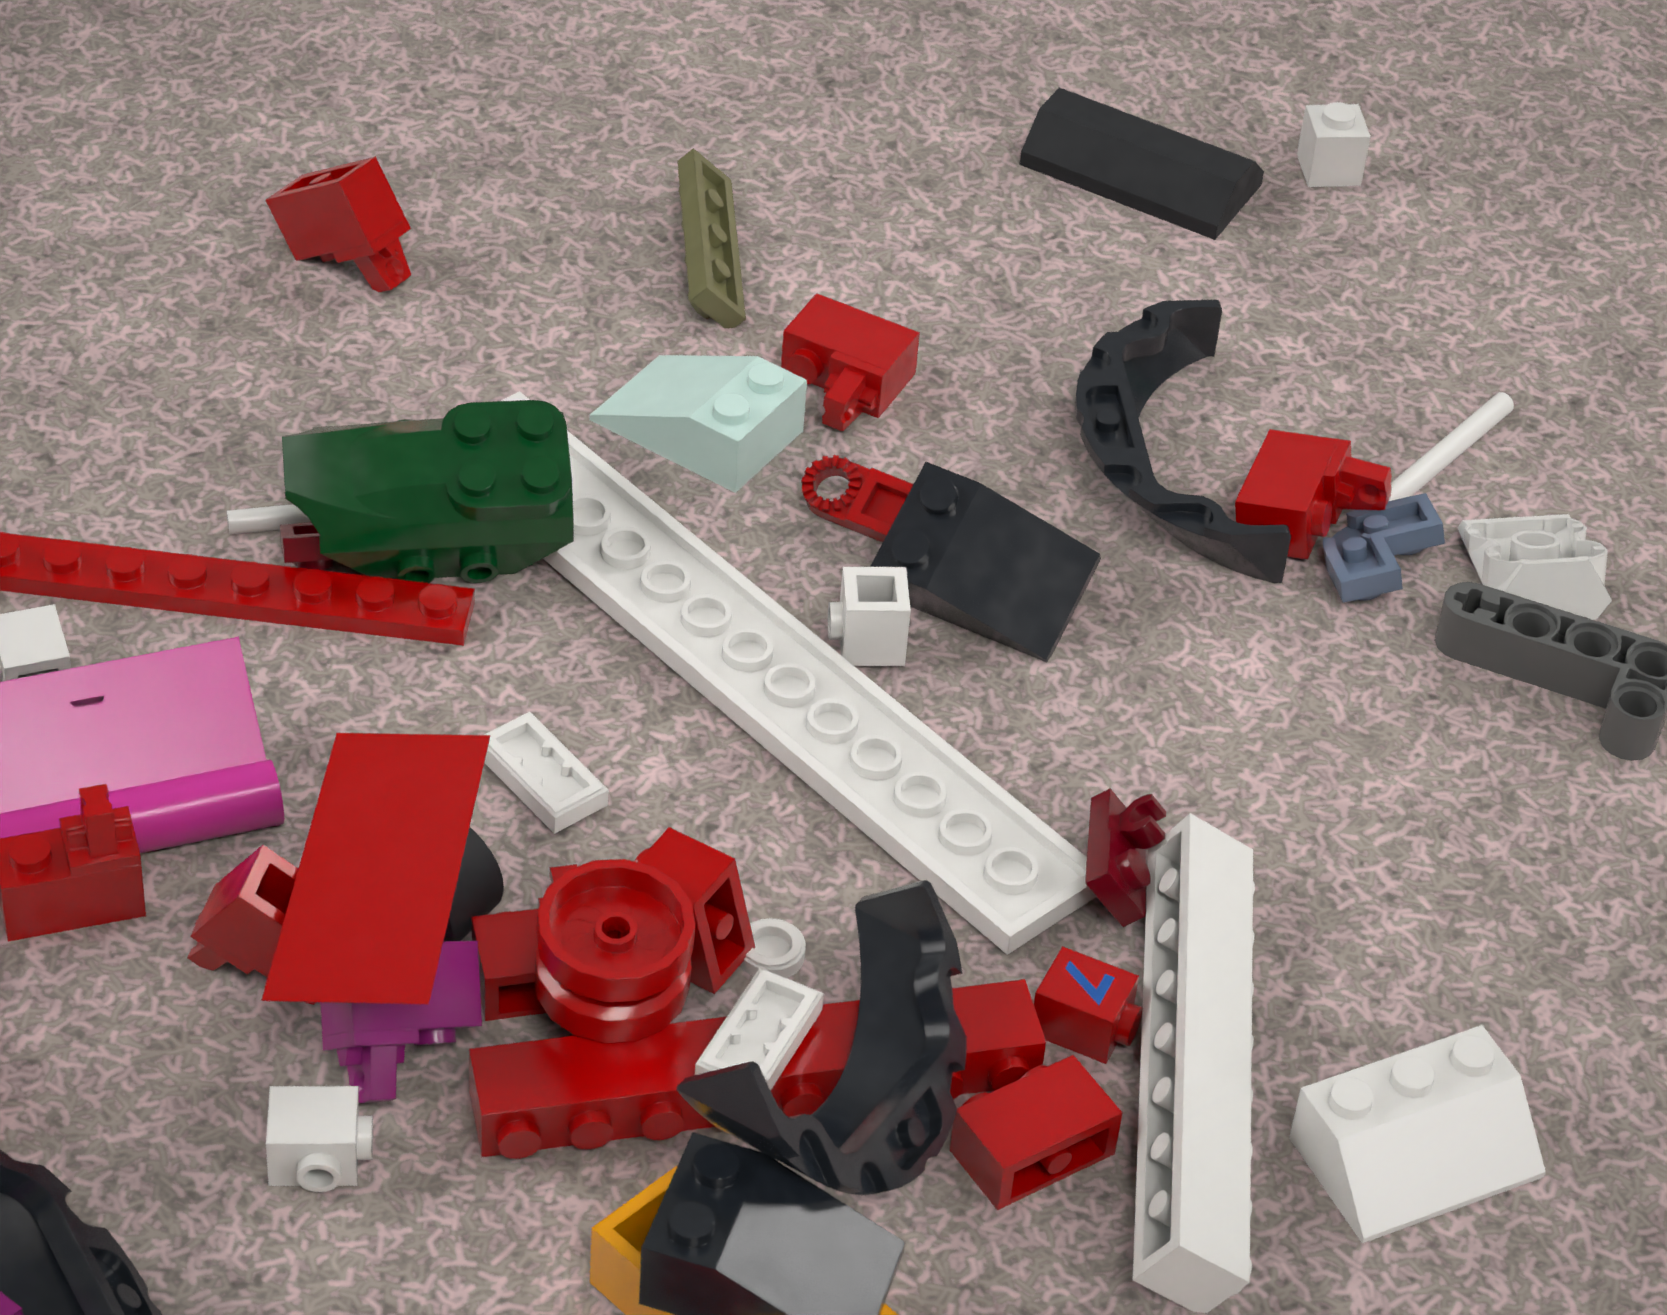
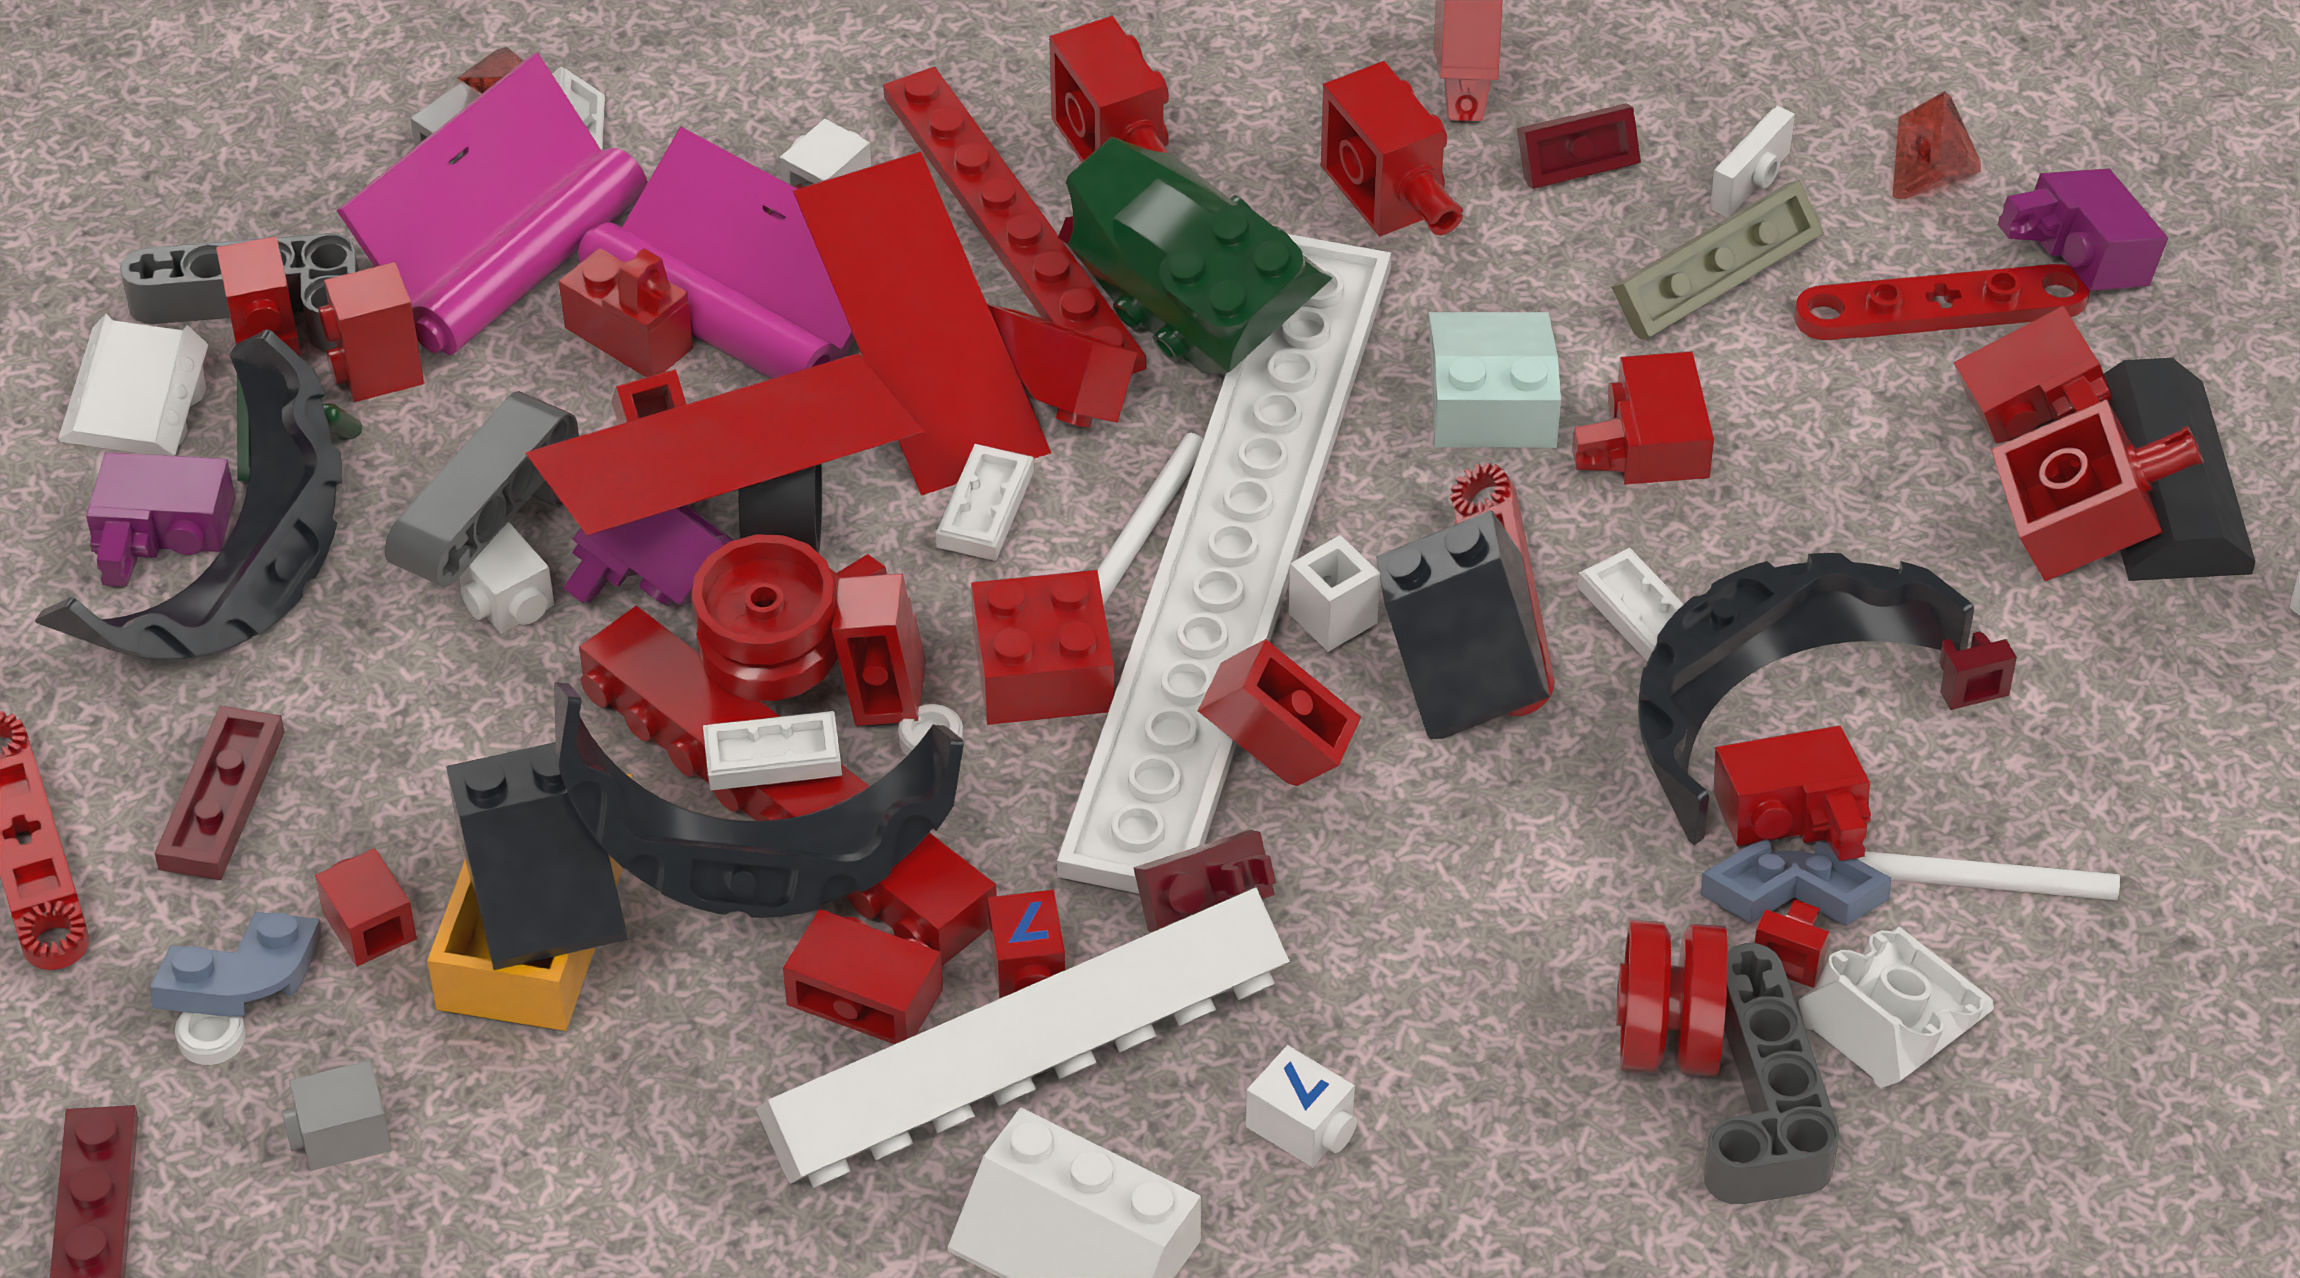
camera: 60 degrees right, 5 degrees up
(184, 442) = (1105, 89): none -> red brick
(221, 1055) = (478, 490): none -> beam
(294, 666) = (920, 316): none -> red sticker
(424, 326) = (1386, 152): none -> red brick
(446, 635) = (1066, 367): none -> red slope
(510, 238) = (1578, 145): none -> dark red plate
(628, 167) = (1752, 162): none -> white plate
(656, 697) = (1148, 513): none -> white bar
(701, 86) = (1932, 148): none -> clear red slope
(767, 812) = (1042, 647): none -> red brick
(843, 192) = (1908, 303): none -> red piece
(884, 54) = (2091, 225): none -> magenta hinge
(991, 709) = (1279, 713): none -> red brick
(1013, 155) = (2032, 376): none -> red hinge
(1031, 471) = (1630, 598): none -> white plate
(1150, 190) = (2085, 487): none -> red brick
(1249, 346) = (1977, 672): none -> dark red tile
(1396, 930) = (1301, 1107): none -> white brick
(1439, 572) = (1795, 941): none -> red tile
(1474, 655) = (1672, 997): none -> red wheel

